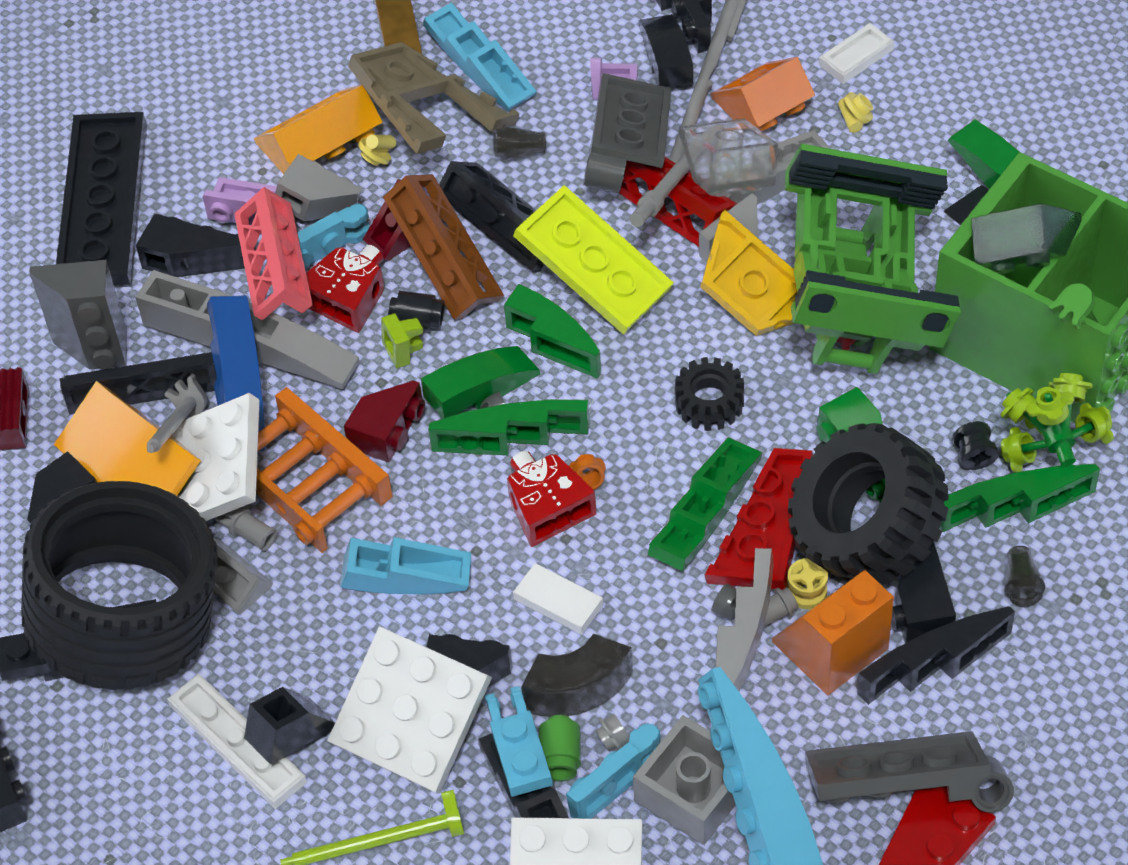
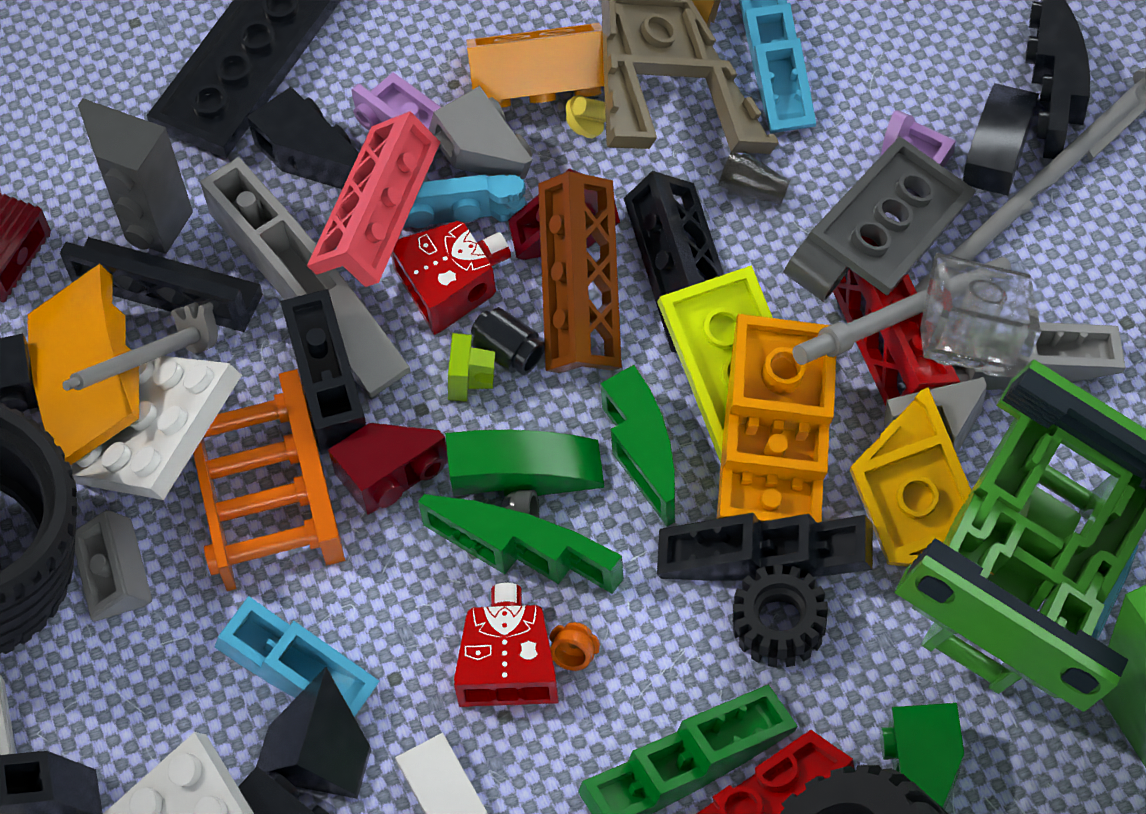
camera: 30 degrees right, 5 degrees up
(234, 351) = (259, 310): blue slope -> none
(250, 528) = (164, 524): light grey axle -> none
(307, 375) = (323, 368): none -> black slope
(452, 606) = (317, 742): none -> black slope
(638, 279) = (775, 422): none -> light orange slope
(659, 362) = (742, 543): none -> black slope
(766, 93) = (1086, 250): orange slope -> none

